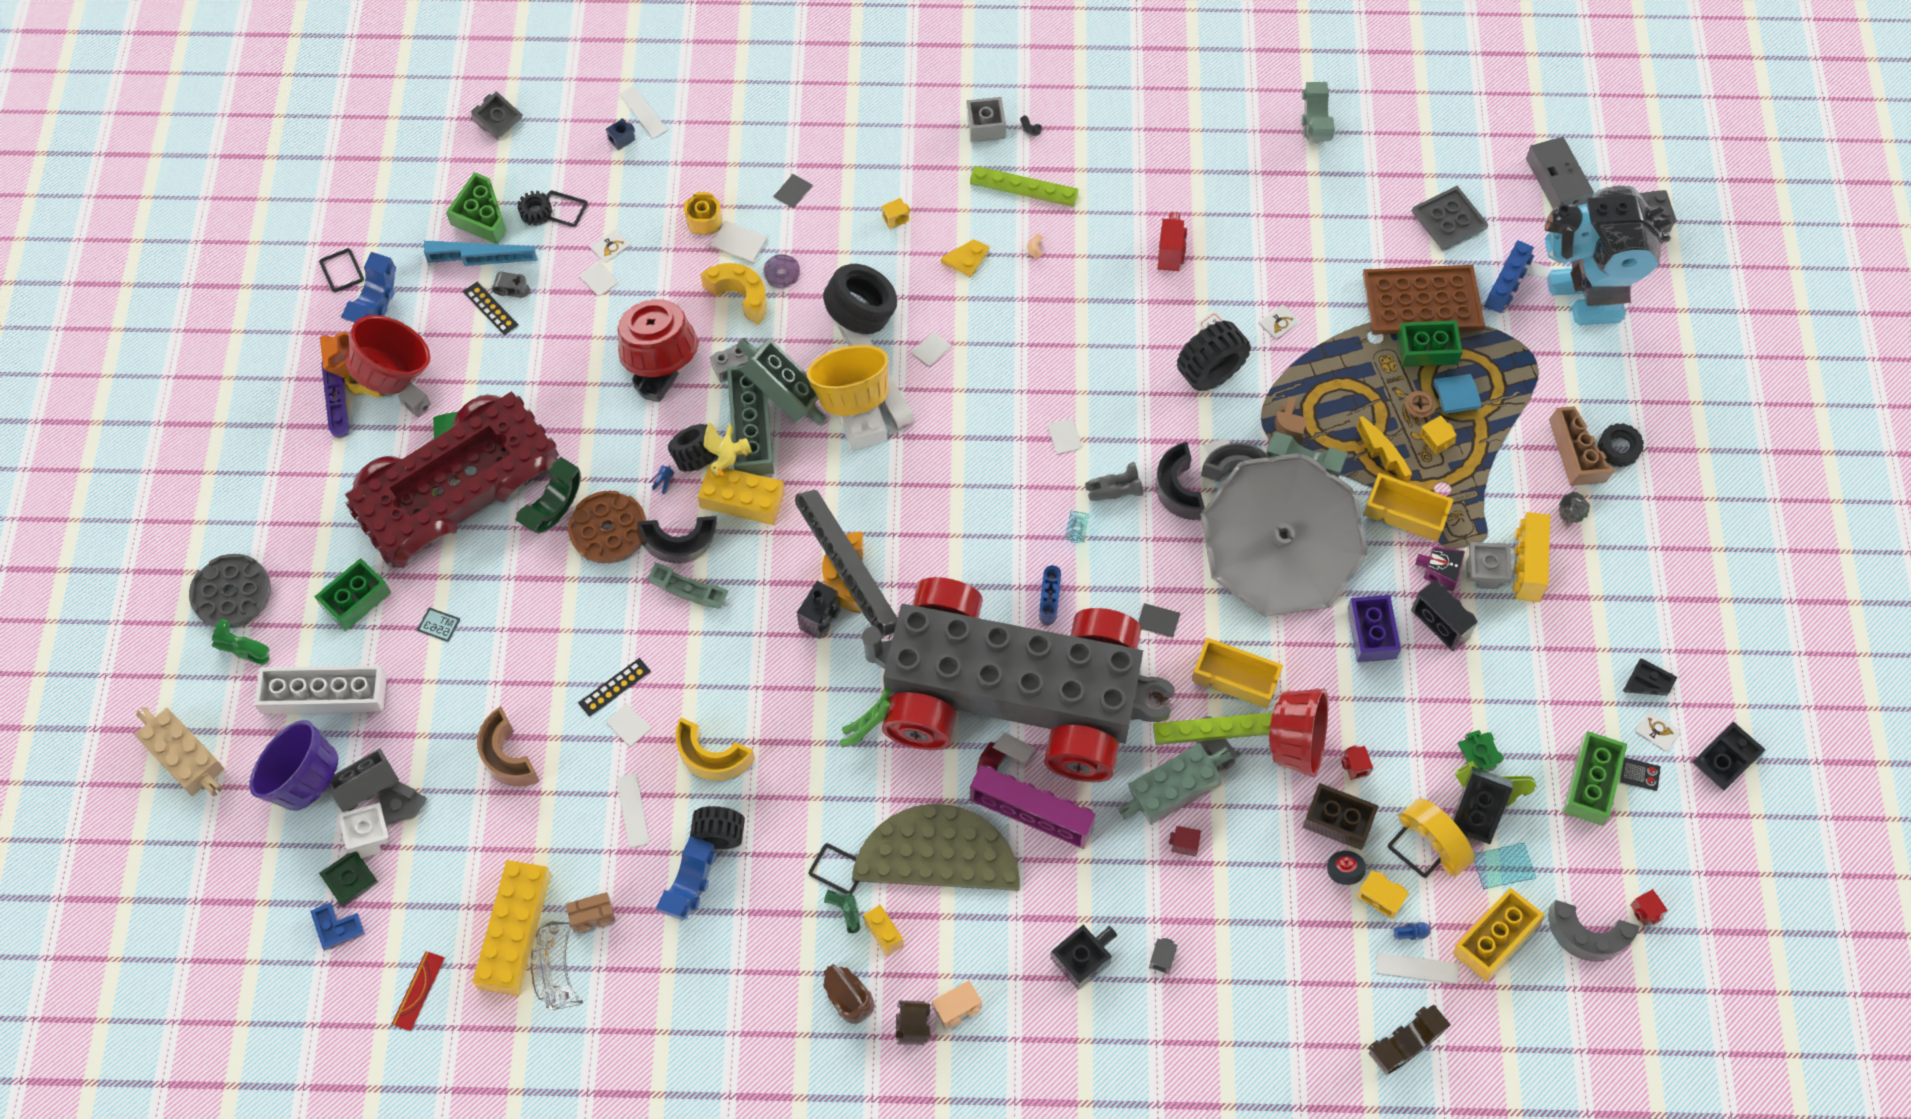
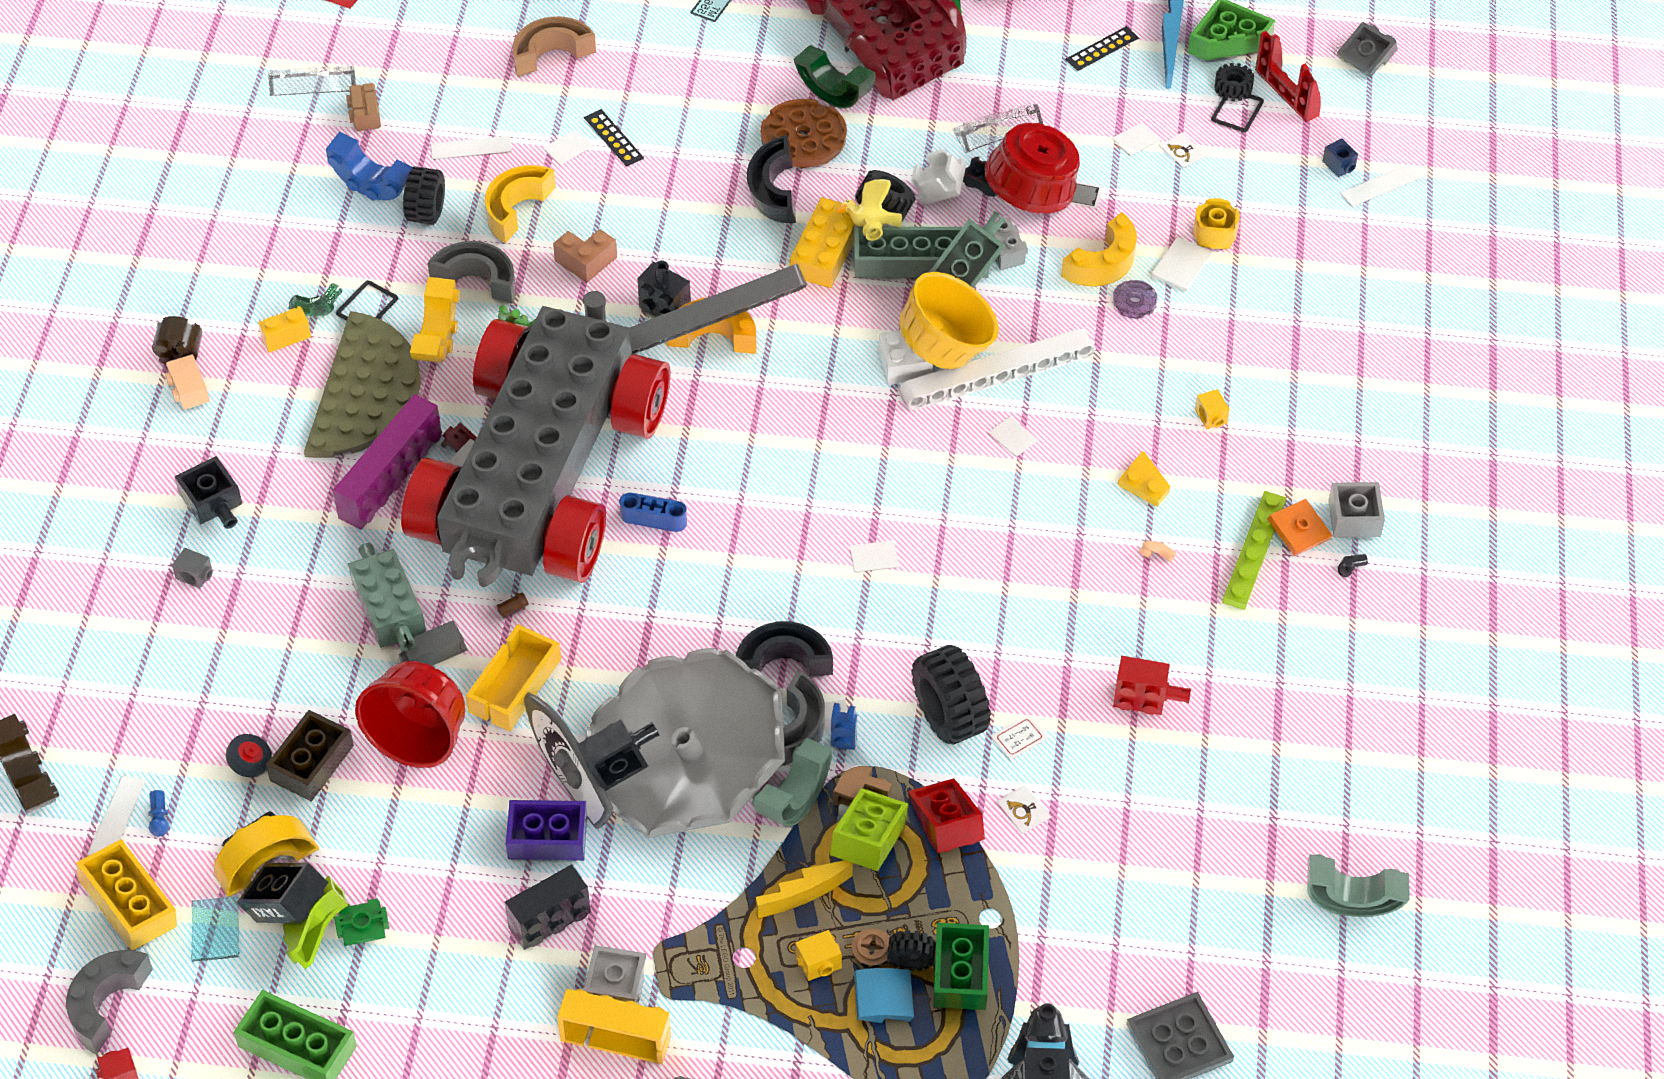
camera: 95 degrees right, 10 degrees down
(508, 285) = (1127, 61): dark grey piece -> none
(512, 928) = (369, 48): yellow brick -> none
(560, 157) = (1302, 98): none -> red wedge
(590, 377) = (994, 126): none -> clear windscreen
(664, 411) = (939, 180): none -> white panel
(665, 473) = (855, 179): blue piece -> none
(687, 588) = (720, 193): sand green slope -> none
(773, 684) = (585, 257): none -> nougat brick
(787, 765) = (476, 259): none -> dark grey brick
(793, 190) = (1257, 319): dark grey sticker -> none
(848, 994) = (218, 299): reddish brown hair -> none
(850, 311) = (1092, 326): black tyre -> none
(876, 796) = (438, 321): none -> yellow brick
(1003, 155) = (1300, 527): none -> orange plate
(1077, 519) = (747, 547): clear light blue brick -> none
(1106, 486) = (793, 584): dark grey piece -> none
(1158, 619) = (607, 621): dark grey sticker -> none
(1185, 840) = (319, 605): dark red brick -> none
(1212, 728) = (444, 624): lime plate -> none
(1249, 426) = (844, 728): none -> blue hinge
(1300, 364) = (947, 815): none -> red slope
(1306, 622) = (566, 760): none -> piece
(1313, 573) = (616, 752): none -> black brick
(1333, 406) = (868, 829): none -> lime piece
(1357, 762) = (377, 789): red brick -> none
(1382, 894) = (205, 784): yellow brick -> none
(1408, 507) = (712, 898): yellow piece -> none
(1422, 296) = (1036, 961): dark orange plate -> none
(1425, 373) = (911, 950): none -> black tyre
(1442, 566) = (623, 926): torso -> none

